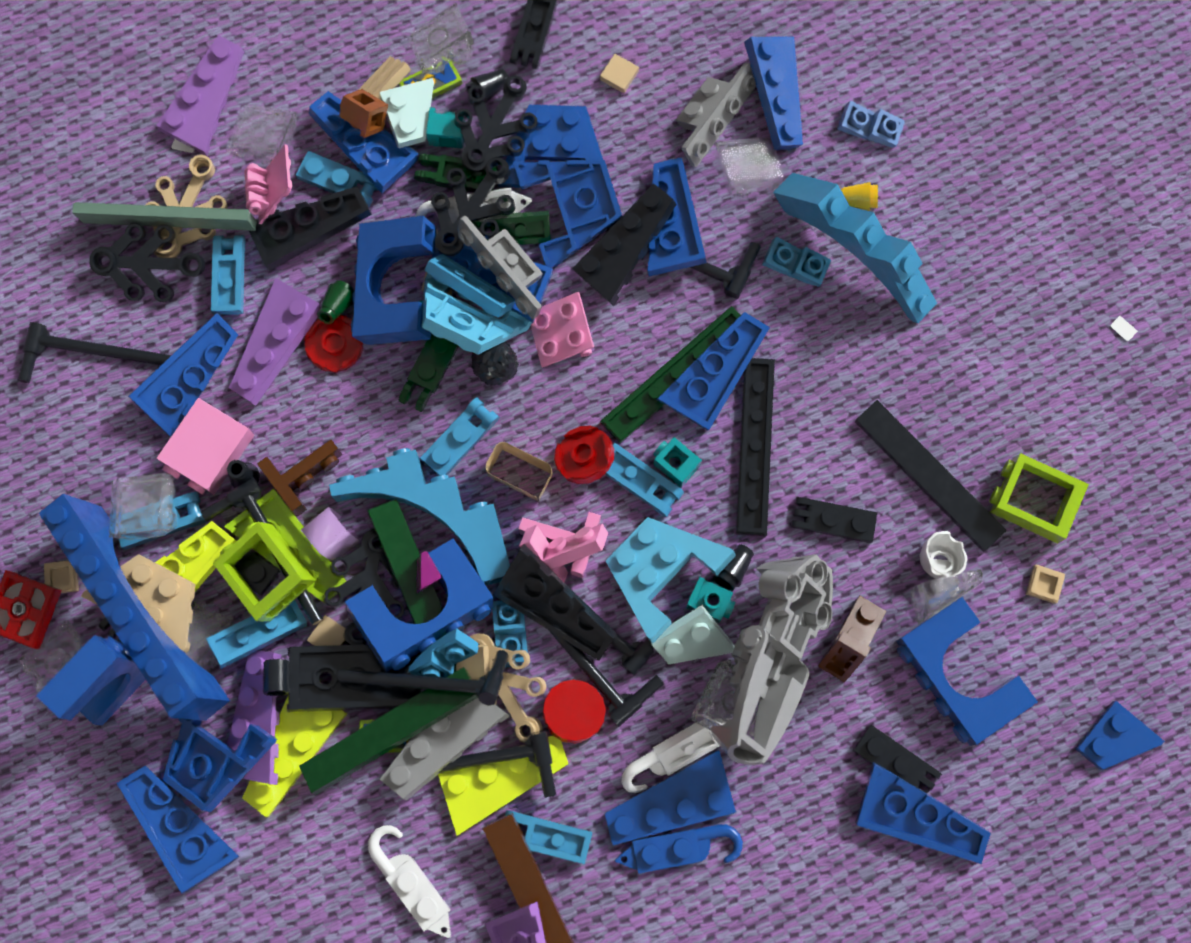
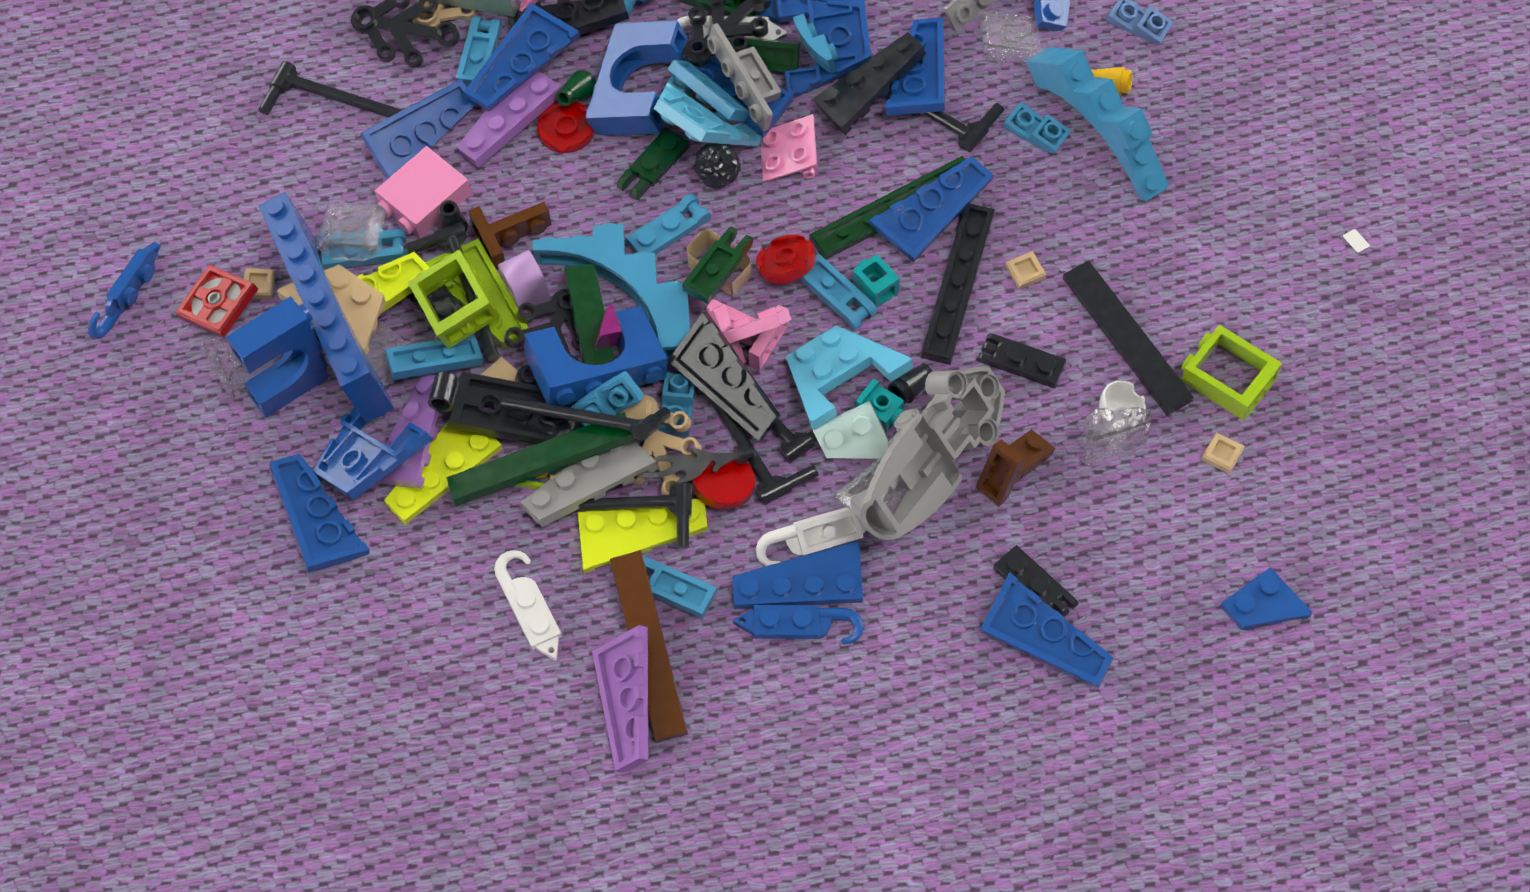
camera: 15 degrees right, 15 degrees down
(273, 274) = (522, 53): none -> blue wing
(520, 486) = (716, 266): none -> dark green hinge
(544, 709) = (695, 466): none -> black piece
(569, 218) = (816, 45): none -> dark azure slope
(817, 420) = (1025, 270): none -> tan tile
(972, 717) = (1120, 553): blue arch -> none

